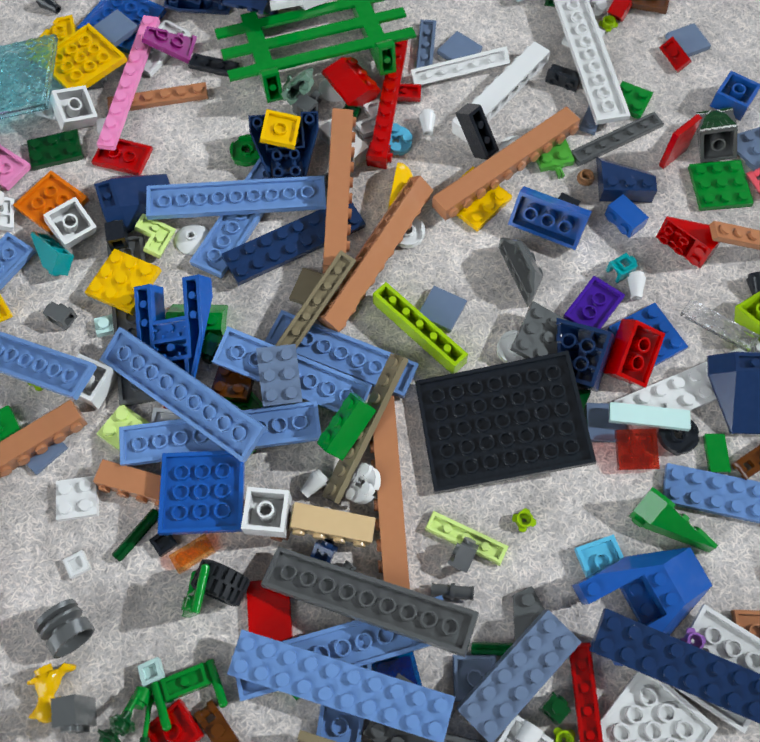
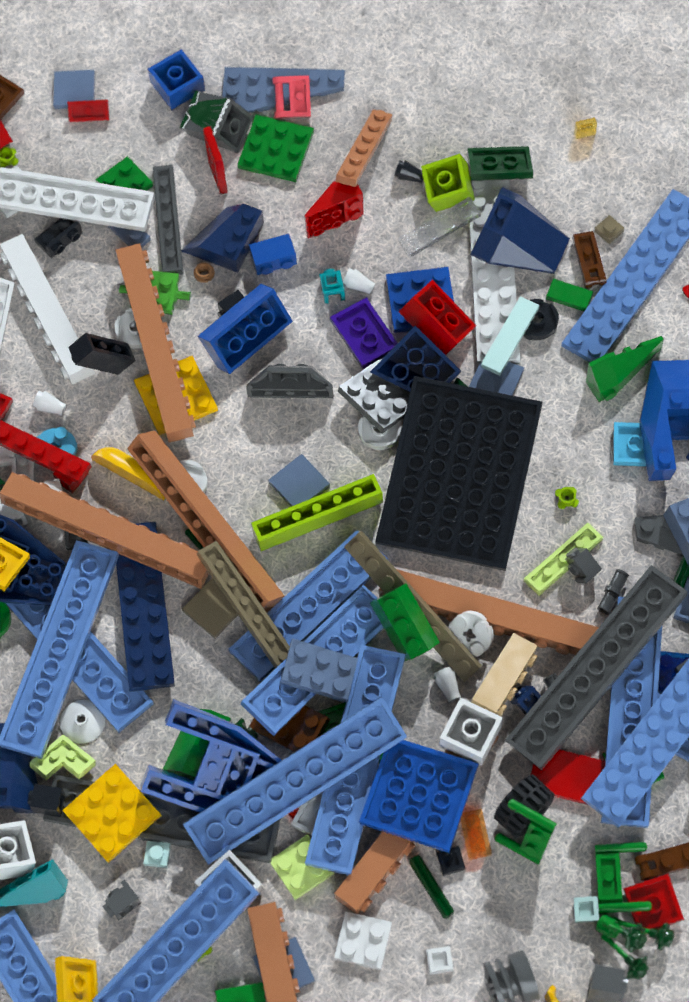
camera: 65 degrees left, 0 degrees up
(636, 449) = (538, 363): clear red plate -> none

